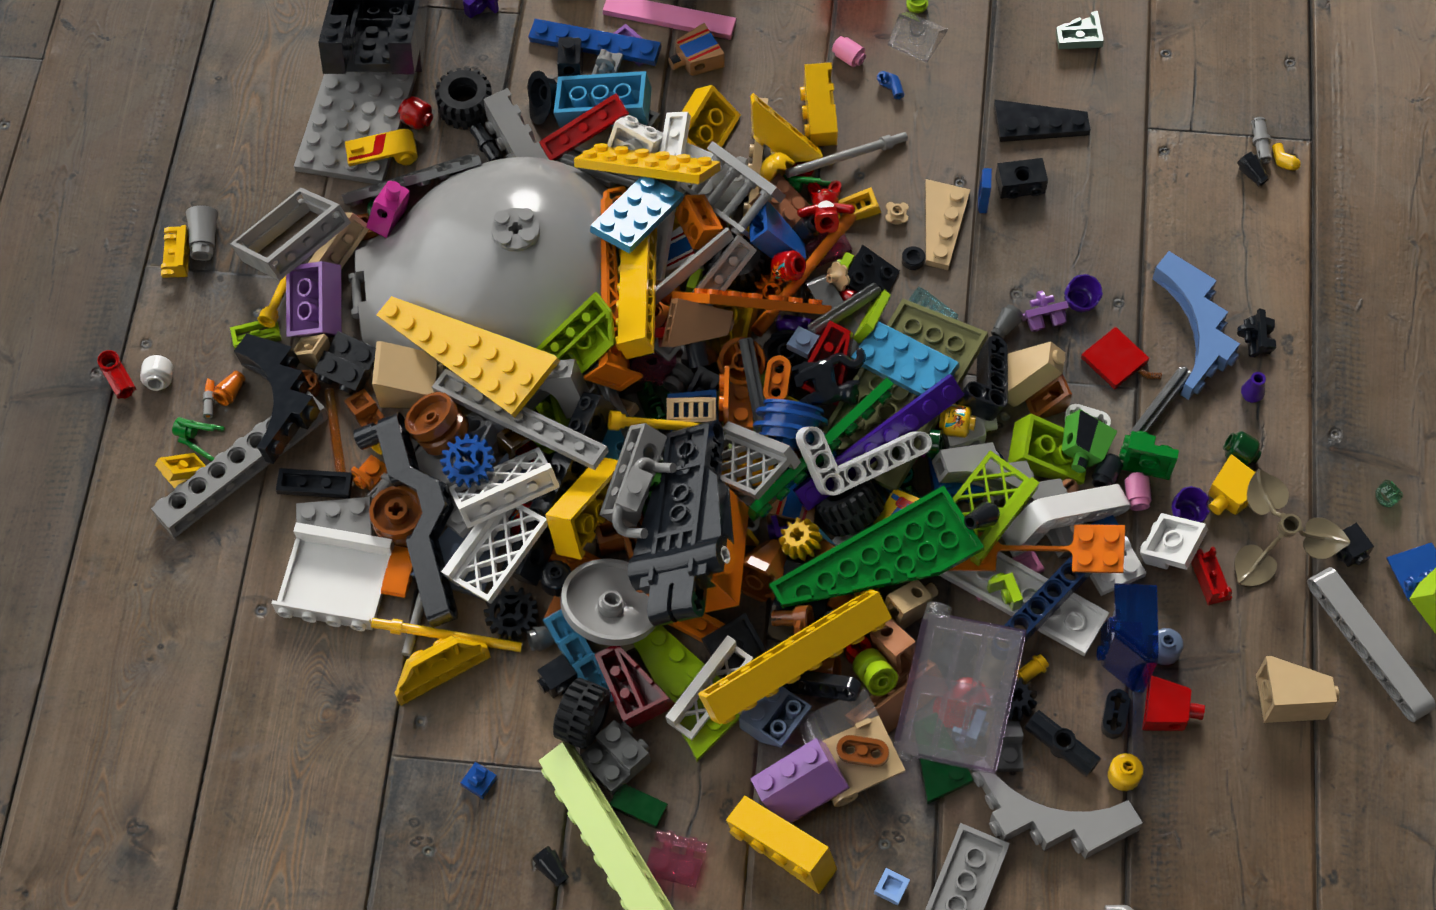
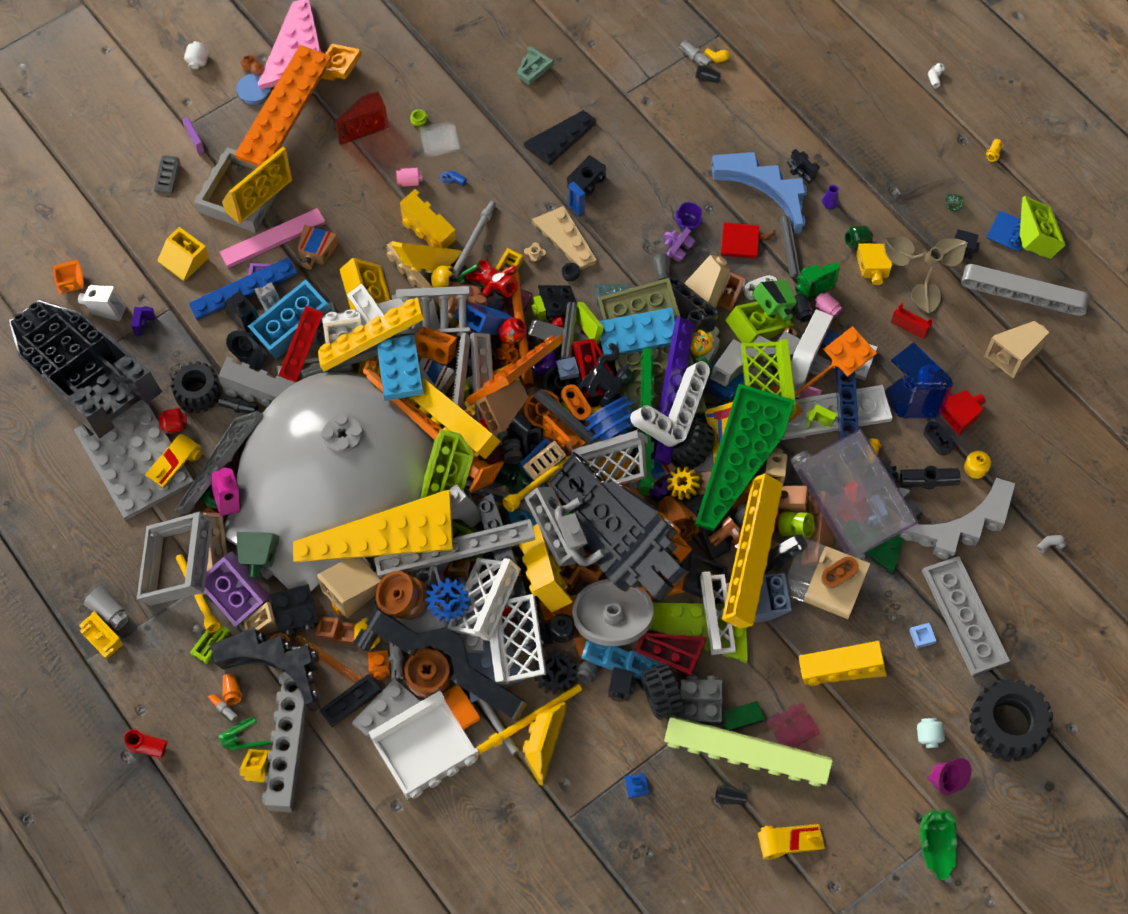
camera: 45 degrees left, 0 degrees up
(156, 372) = (172, 720): white head -> none
(358, 281) = (256, 550): none -> dark green torso
(800, 781) = (821, 620): medium lavender slope -> none
(838, 276) = (544, 314): tan plant -> none
(982, 516) = (777, 382): black cone -> none
(1172, 542) = (877, 317): white plate -> none
(1191, 504) = (864, 291): dark purple hair -> none

